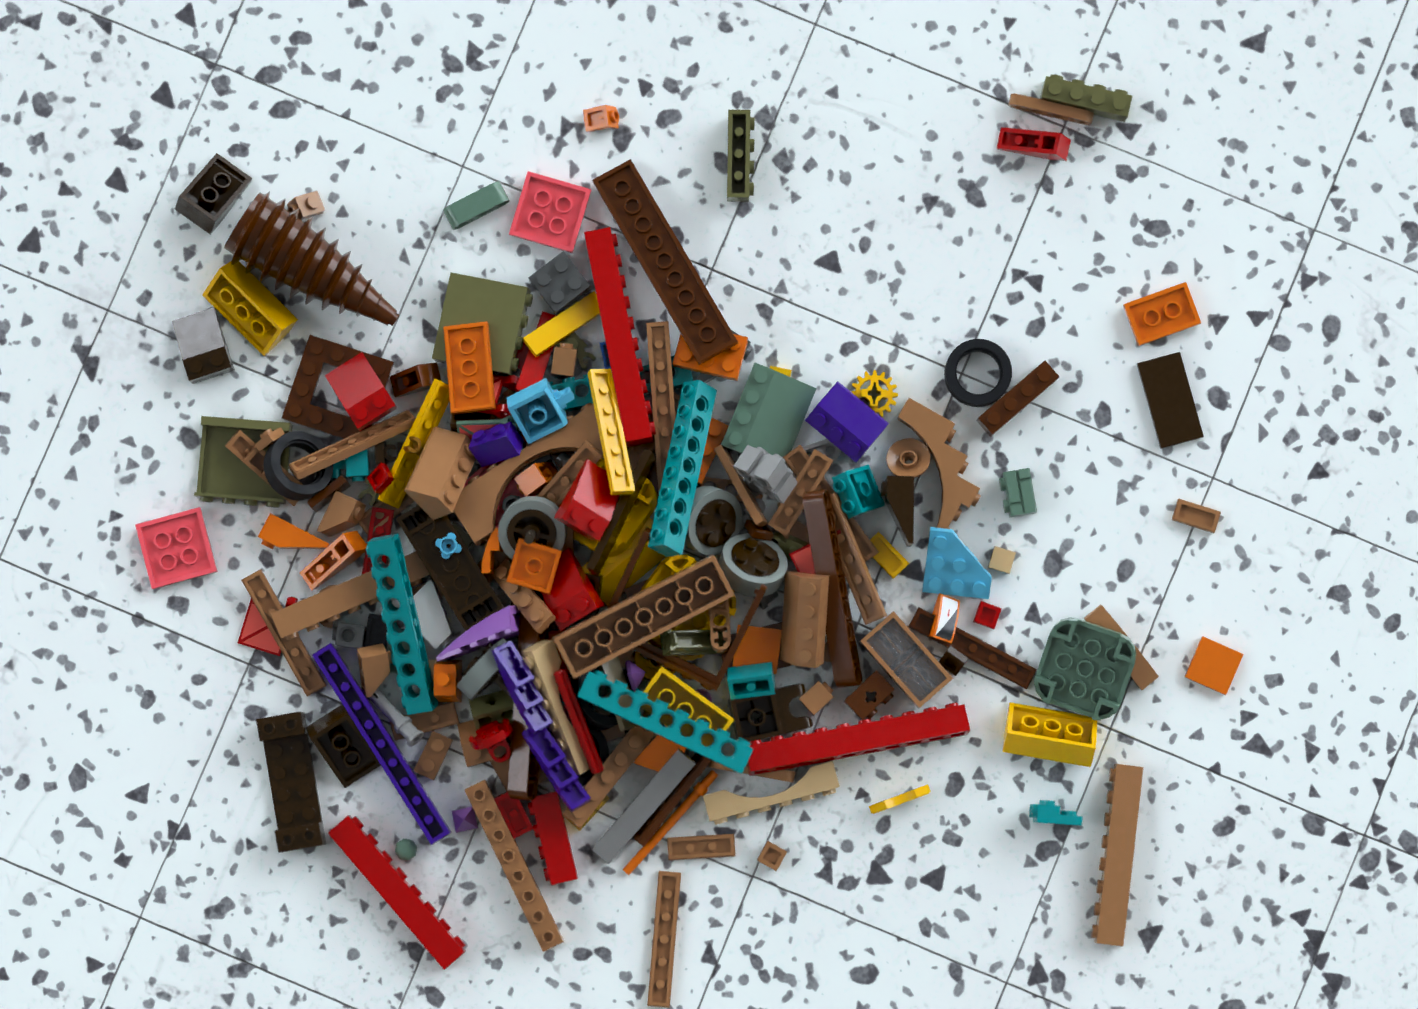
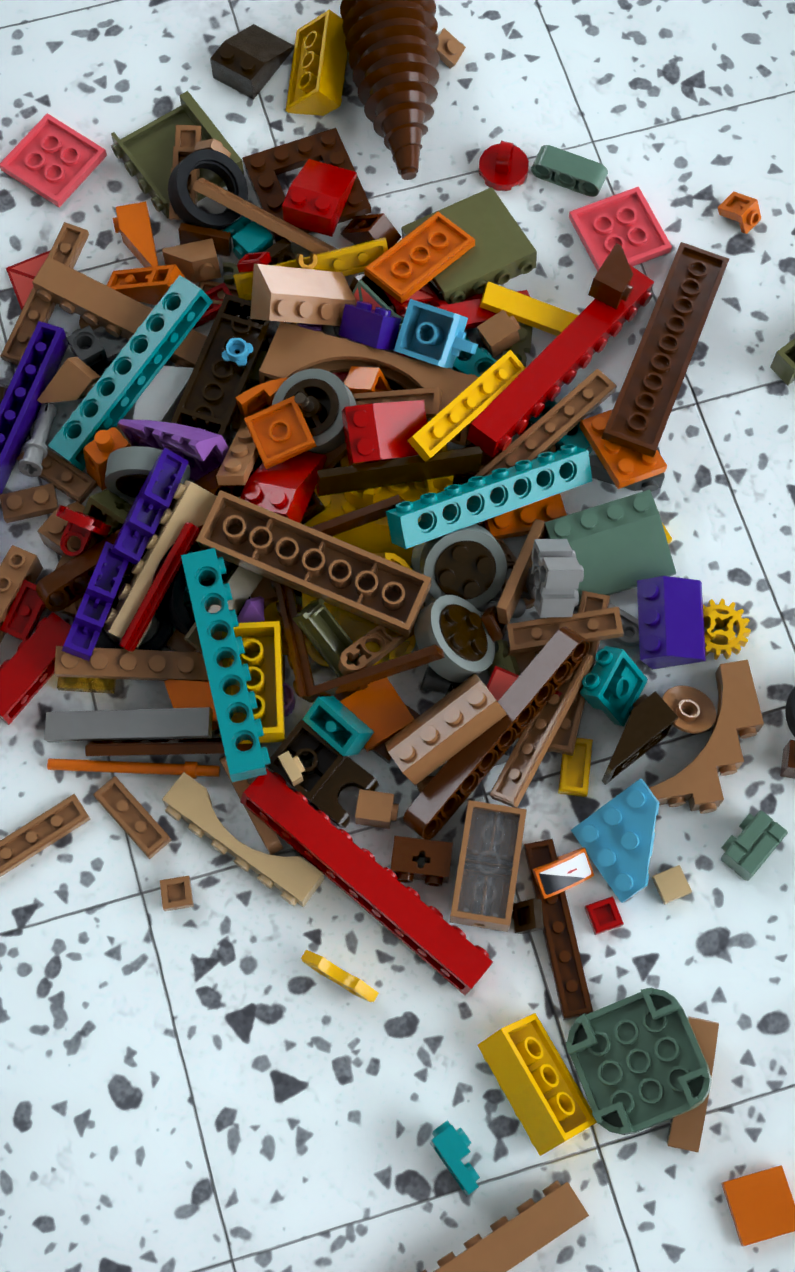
camera: 50 degrees right, 15 degrees down
(434, 245) = (503, 166): none -> red tile
(559, 283) = (565, 280): dark grey brick -> none
(592, 257) = (613, 279): none -> reddish brown slope
(758, 729) = (292, 767): none -> tan plate

